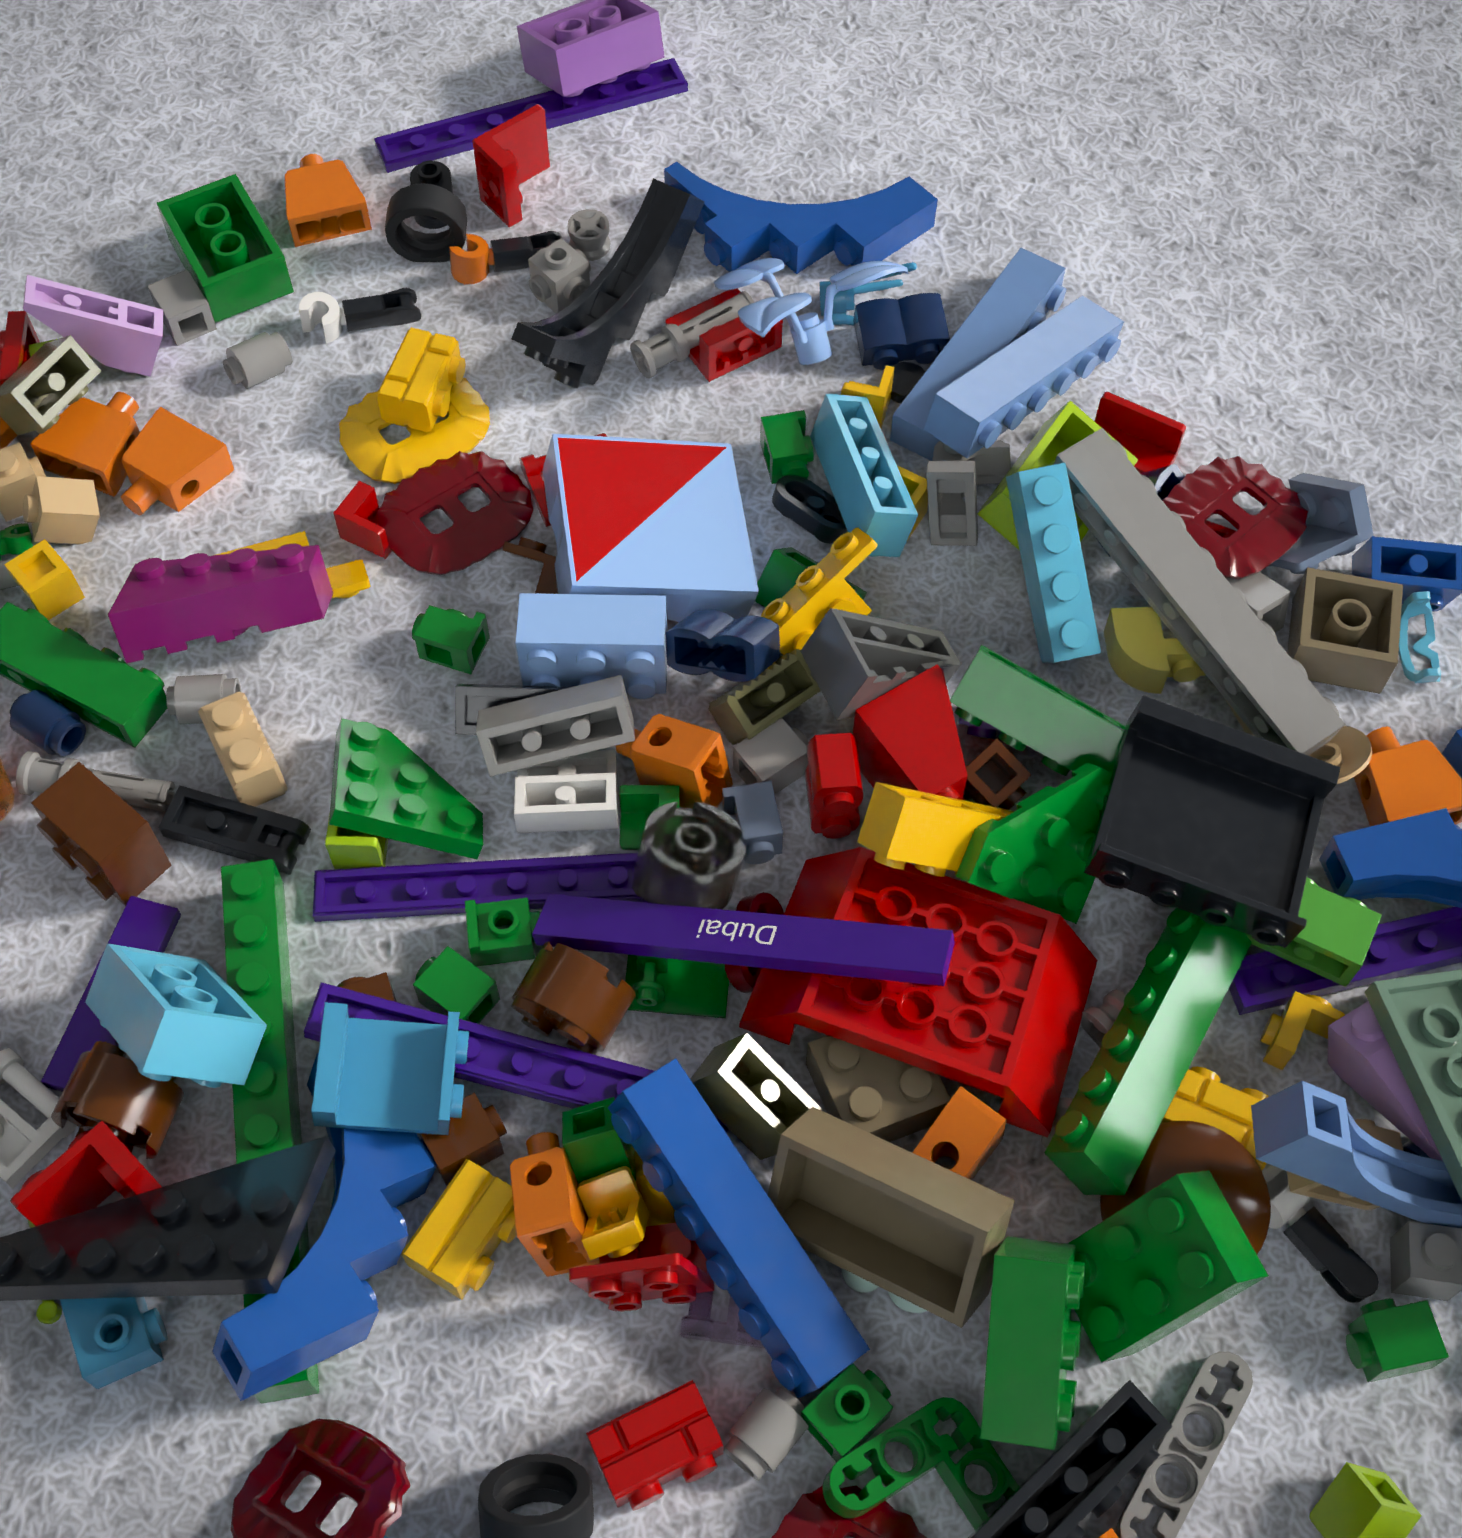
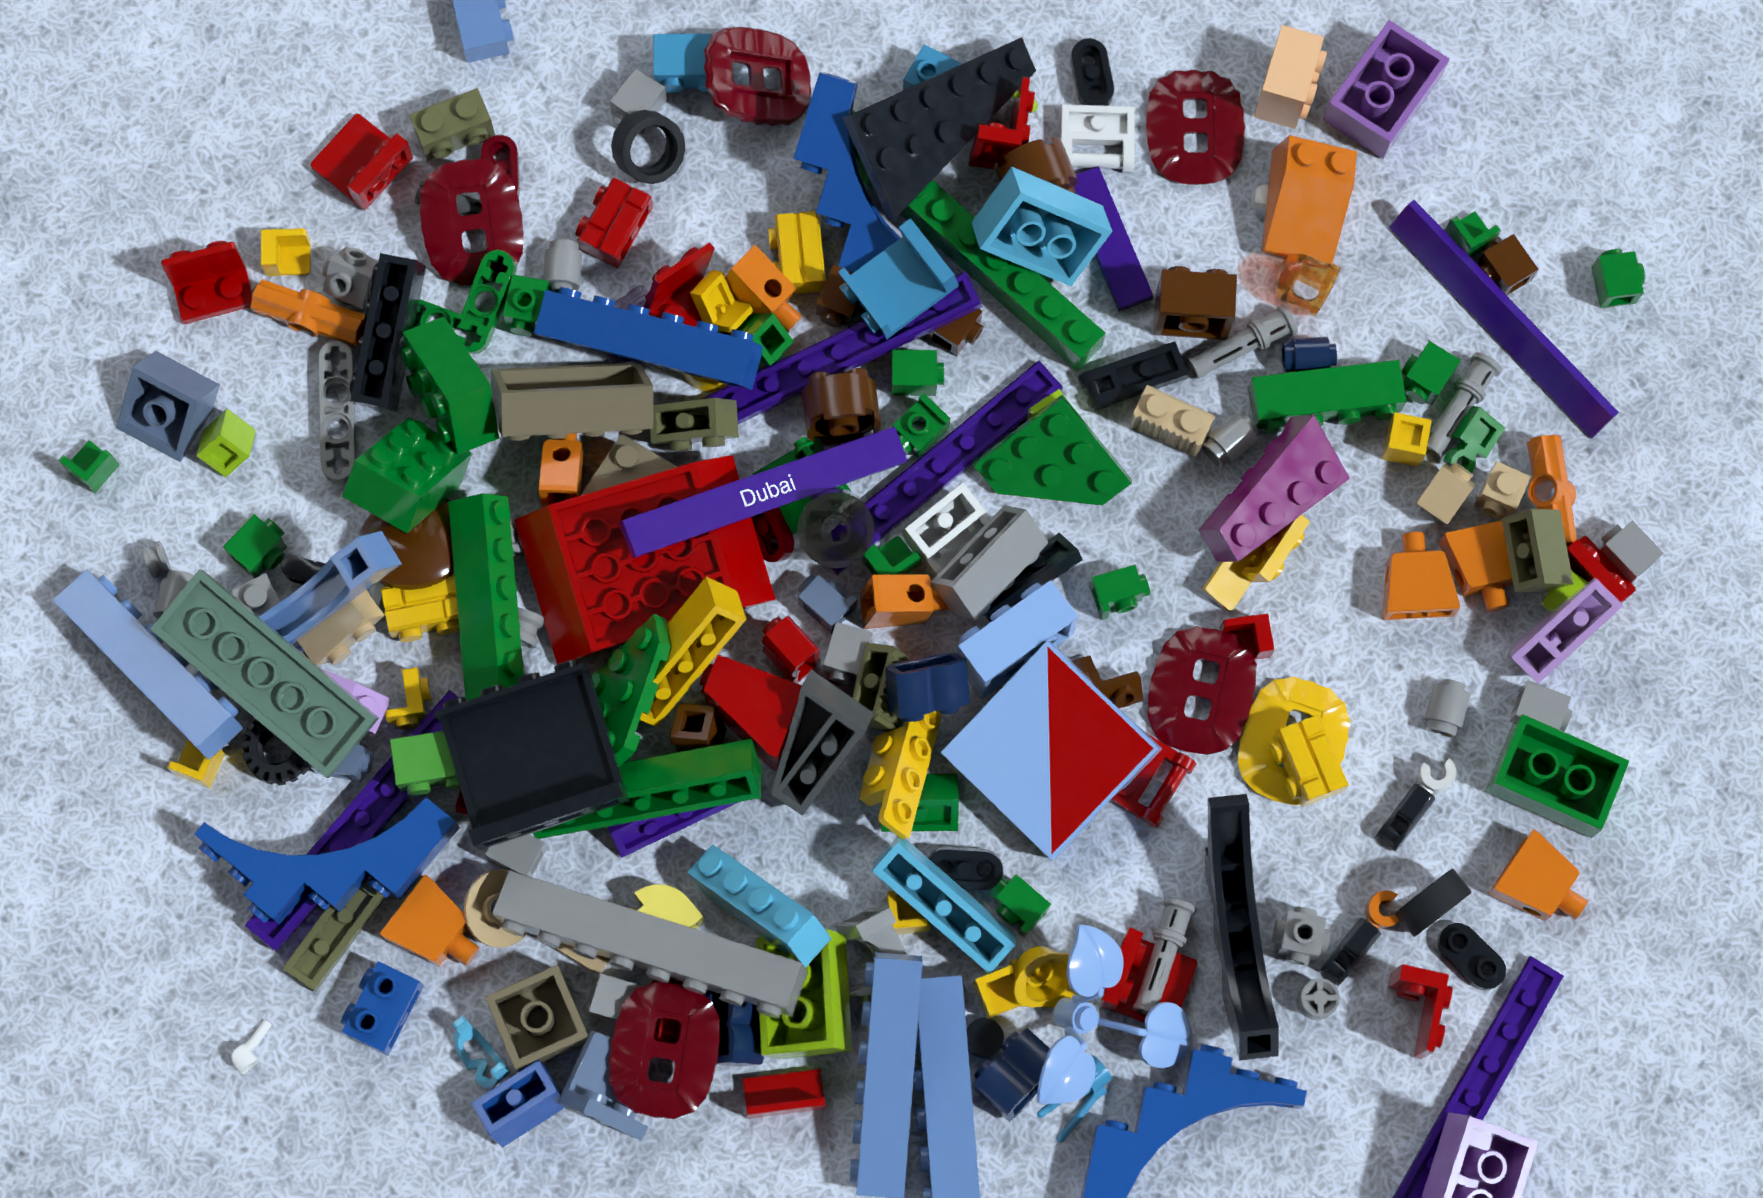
camera: 140 degrees right, 15 degrees up
(809, 385) = (1041, 977): none -> yellow piece

